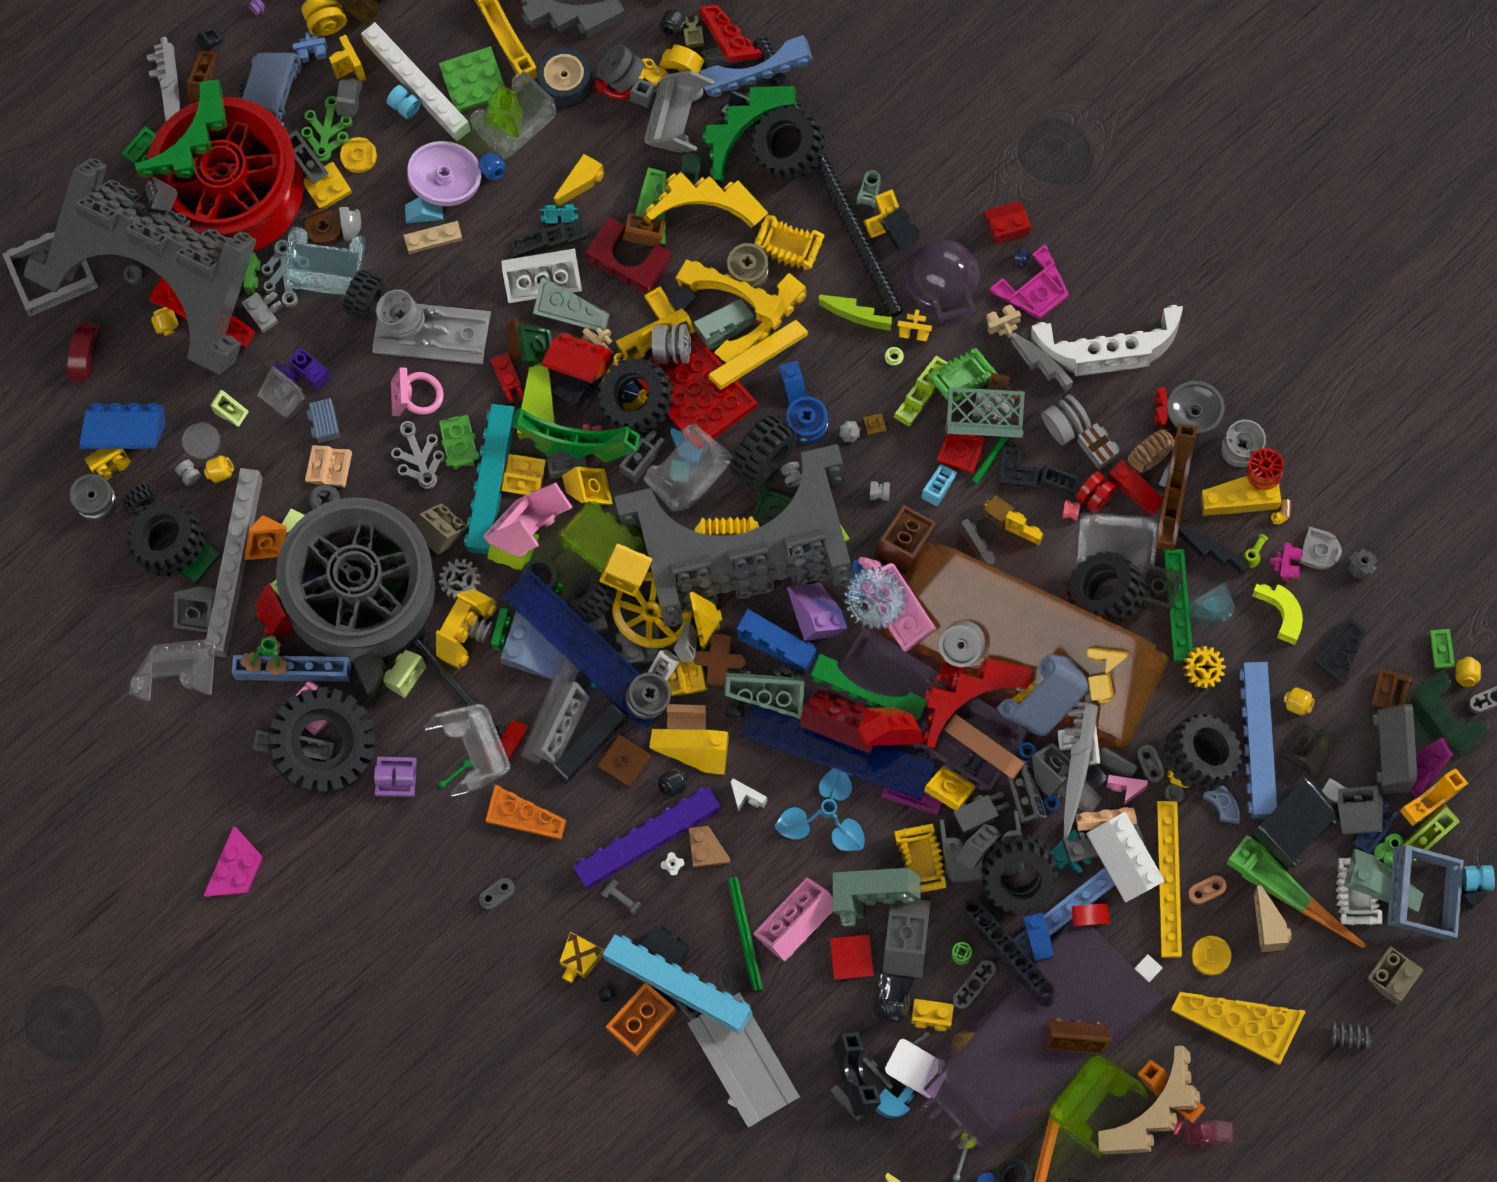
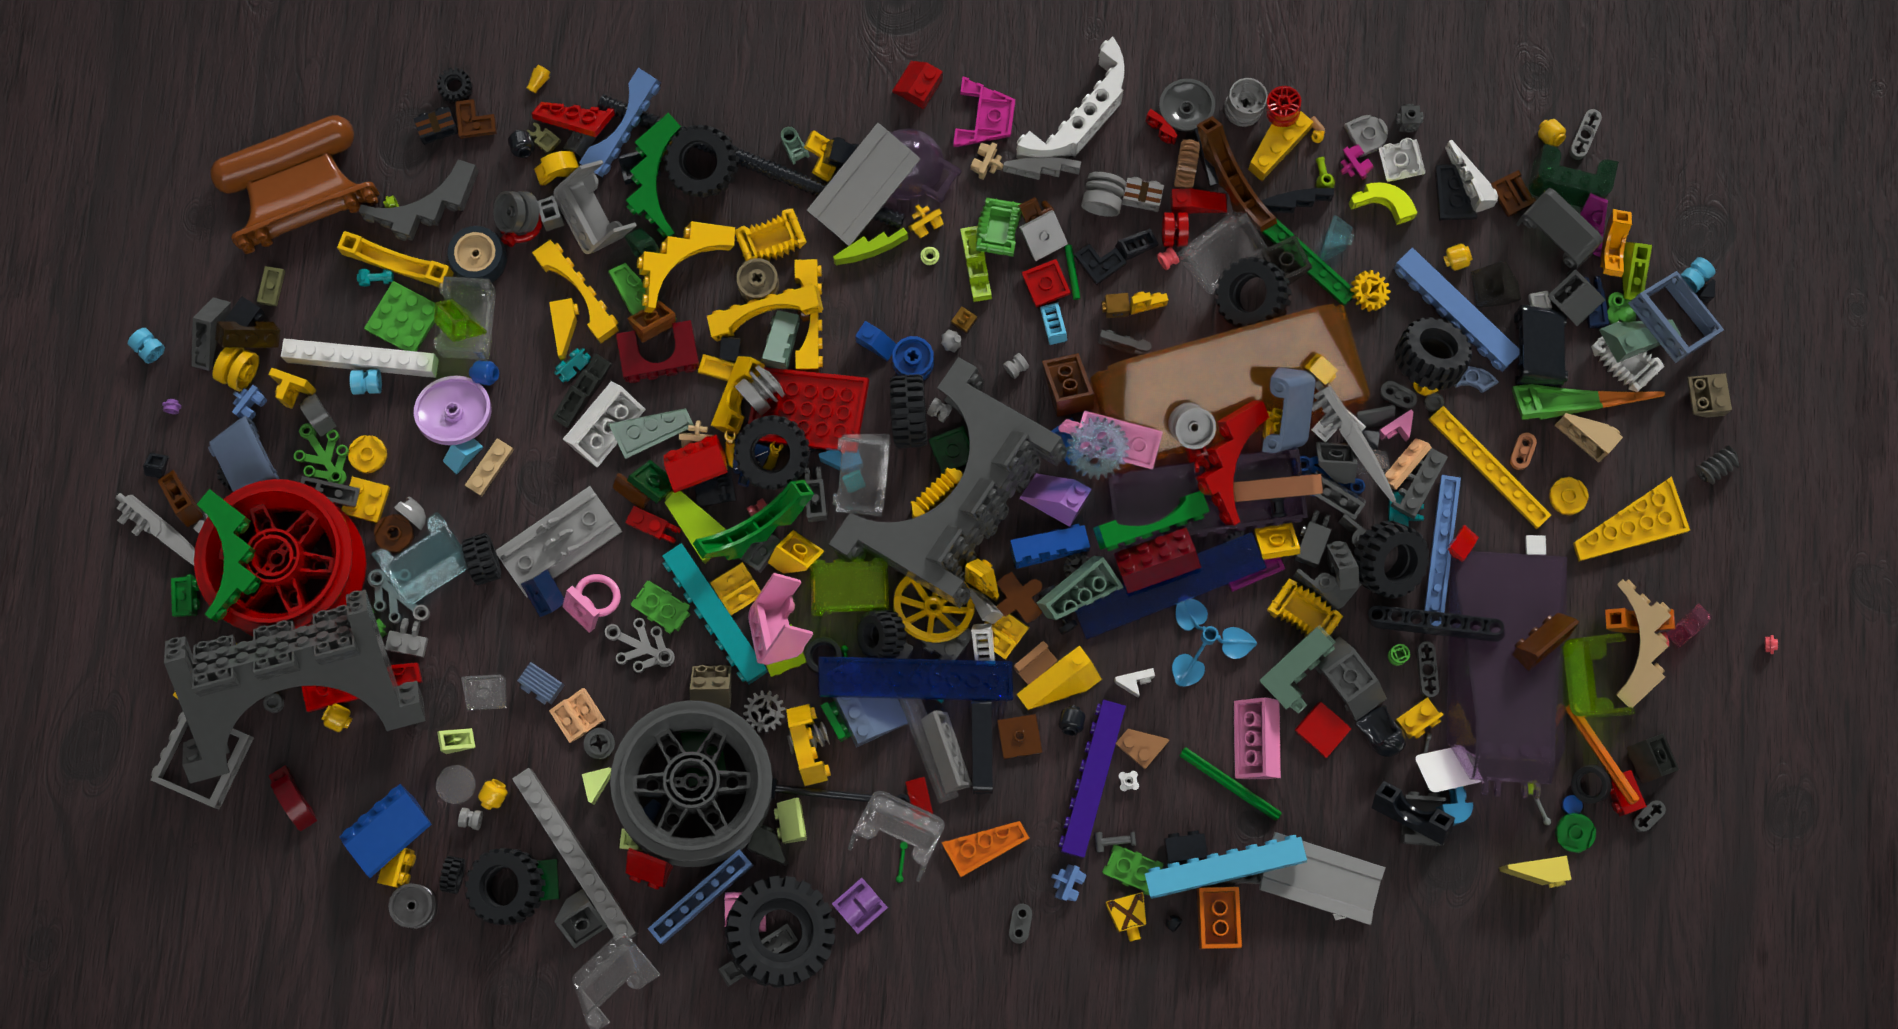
camera: 50 degrees left, 5 degrees up
(160, 194) = (249, 621): dark grey slope -> none
(265, 539) = (586, 815): orange slope -> none
(268, 647) = (673, 899): plant -> none
(288, 371) = (473, 670): dark purple arm -> none
(309, 368) = (490, 653): dark purple slope -> none
(385, 358) = (543, 593): none -> dark blue panel
(400, 314) = (526, 548): light grey wheel -> none
(473, 27) = (364, 277): none -> teal bar
(550, 899) = (1065, 881): none -> medium blue hips
(607, 200) = (551, 259): none -> yellow arch
(613, 921) = (1130, 868): none -> bright green piece
(625, 570) = (895, 592): yellow slope -> none
(652, 72) = (543, 194): yellow plate -> none
(656, 688) = (993, 662): dark grey wheel -> none
(758, 354) = (830, 342): yellow tile -> none
(888, 727) = (1199, 535): red wedge -> none
(890, 259) = (863, 184): none -> light grey hinge
(980, 428) = (1047, 255): sand green fence -> none
(1021, 257) = (954, 101): dark blue plate -> none
(1038, 937) = (1445, 593): blue slope -> none
(1112, 657) = (1313, 339): yellow slope -> none
(1125, 857) = (1449, 478): white slope -> none
(1328, 592) = (1402, 160): none -> white slope
(1366, 660) = (1475, 184): none -> white wedge
(1442, 649) = (1518, 132): bright green plate -> none

